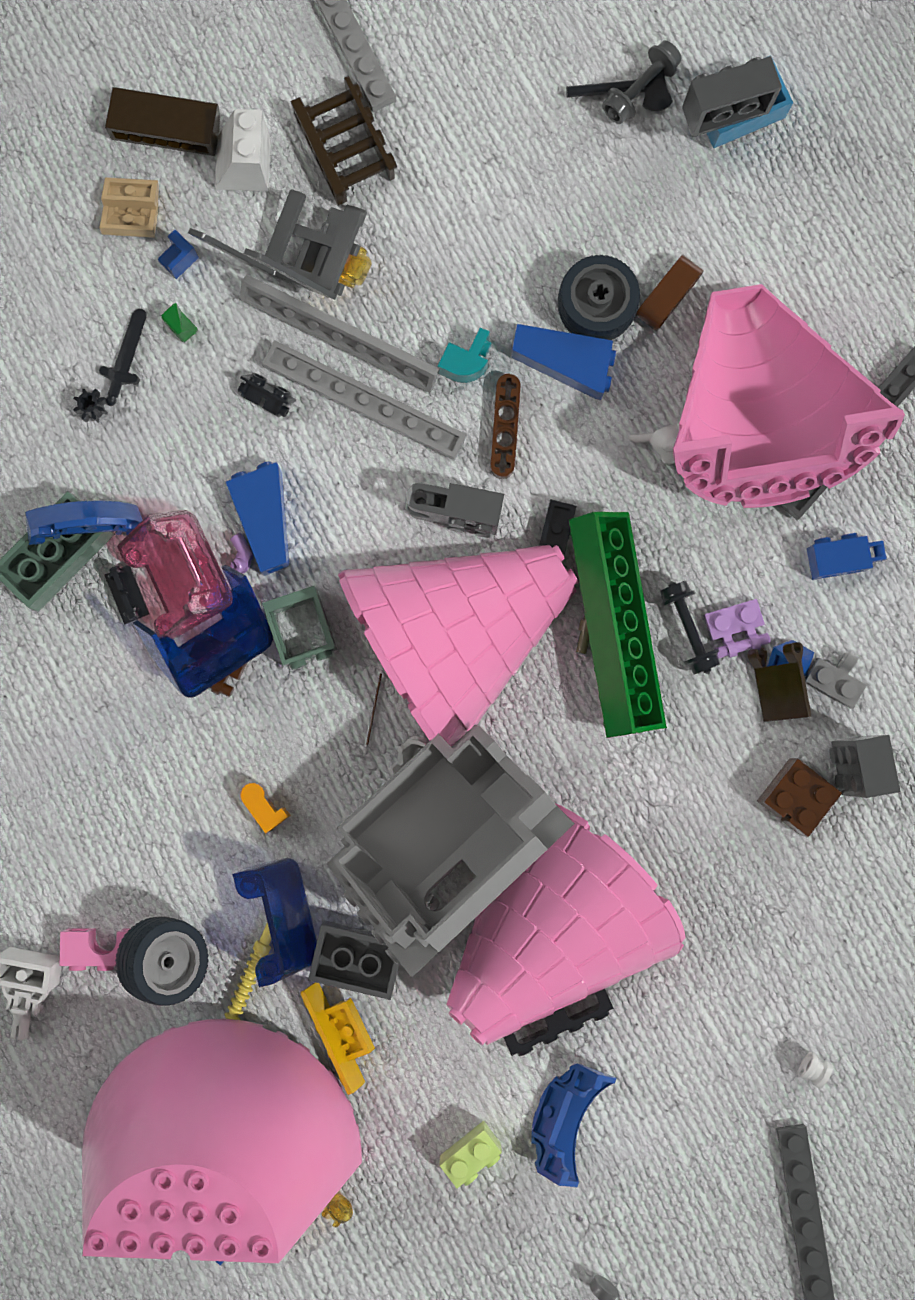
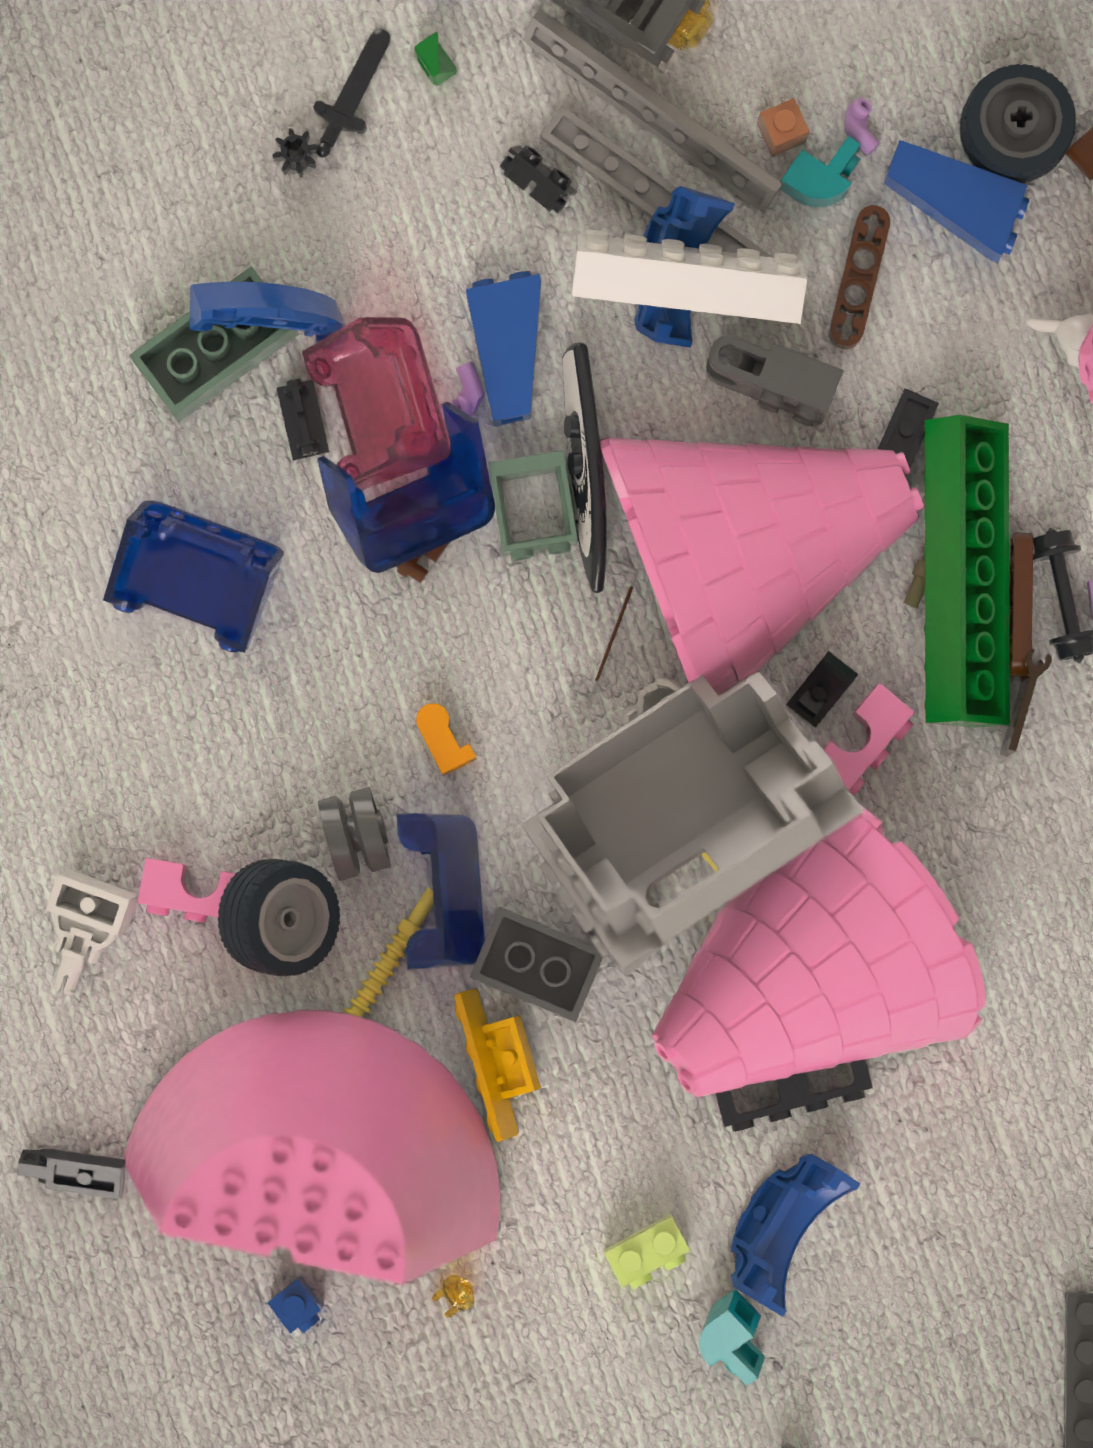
camera: 10 degrees right, 0 degrees up
(45, 1168) = (74, 1172): none -> hinge
(63, 716) = (194, 571): none -> clear blue windscreen
(208, 888) = (359, 832): none -> dark grey wheel
(332, 592) = (585, 463): none -> black piece
(369, 437) = (689, 219): none -> blue windscreen
(381, 446) = (689, 277): none -> white brick
(433, 329) = (783, 127): none -> nougat brick
(484, 319) = (857, 125): none -> lavender arm
(528, 724) = (822, 689): none -> black slope
(542, 1210) = (728, 1335): none -> brick
(576, 738) = (883, 718): none -> bright pink arch
(659, 639) = (1020, 601): none -> reddish brown beam
(673, 708) = (1023, 702): none -> dark brown flag

